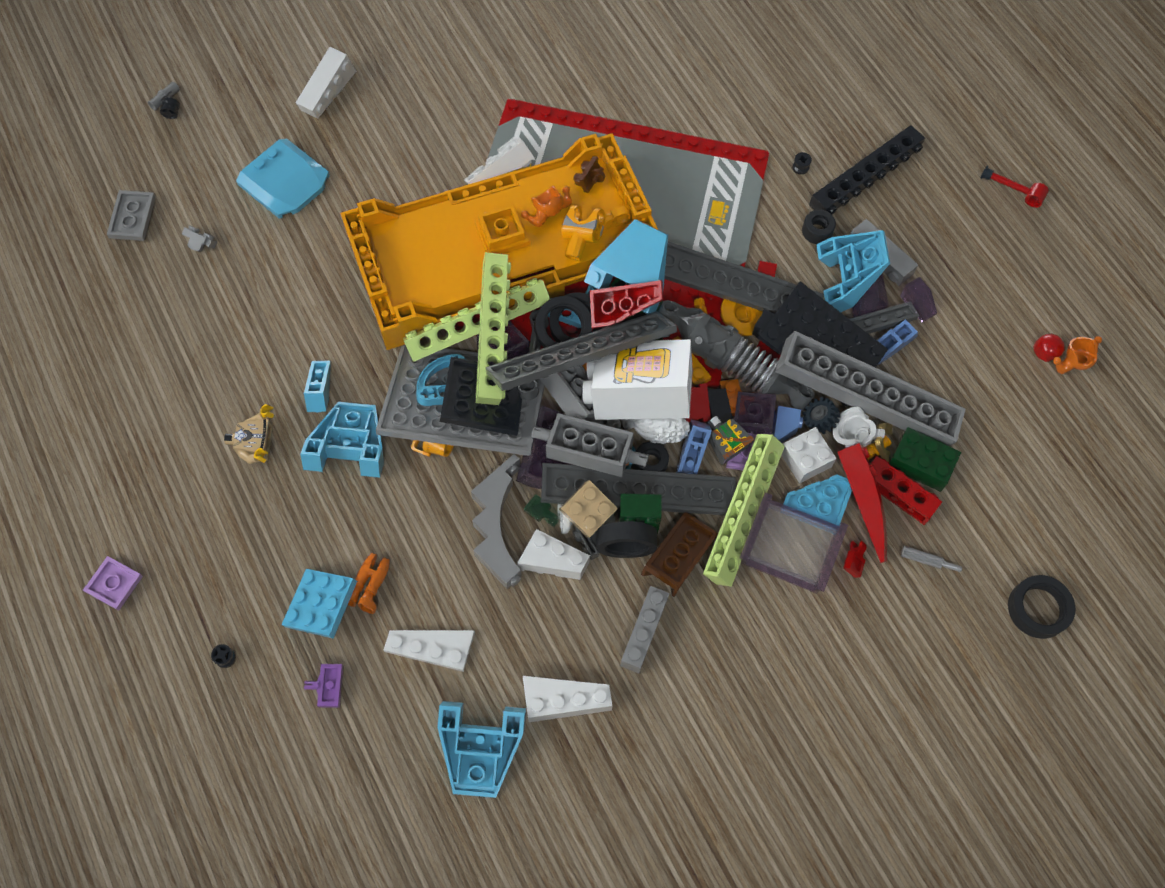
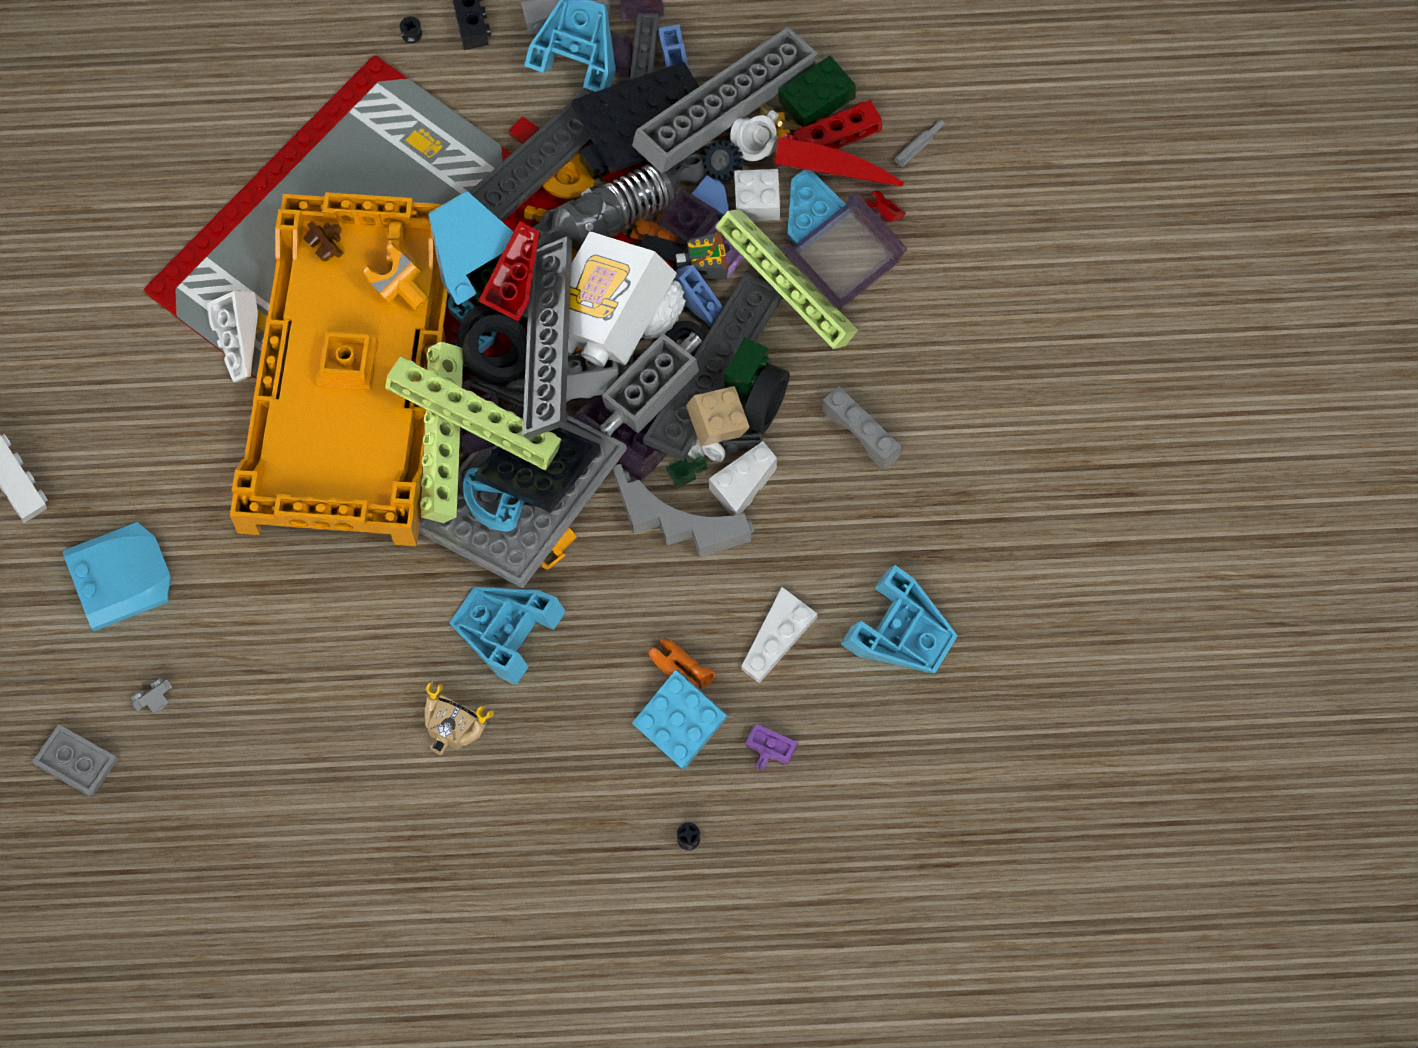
camera: 60 degrees left, 0 degrees up
(113, 583) = (549, 921): lavender plate -> none
(317, 386) = (422, 633): medium azure slope -> none
(548, 205) = (341, 296): orange piece -> none
(564, 698) = (892, 533): white wedge -> none
(680, 552) = (801, 355): reddish brown plate -> none
(821, 218) = (504, 64): black tyre -> none
(1057, 590) = (1017, 50): black tyre -> none

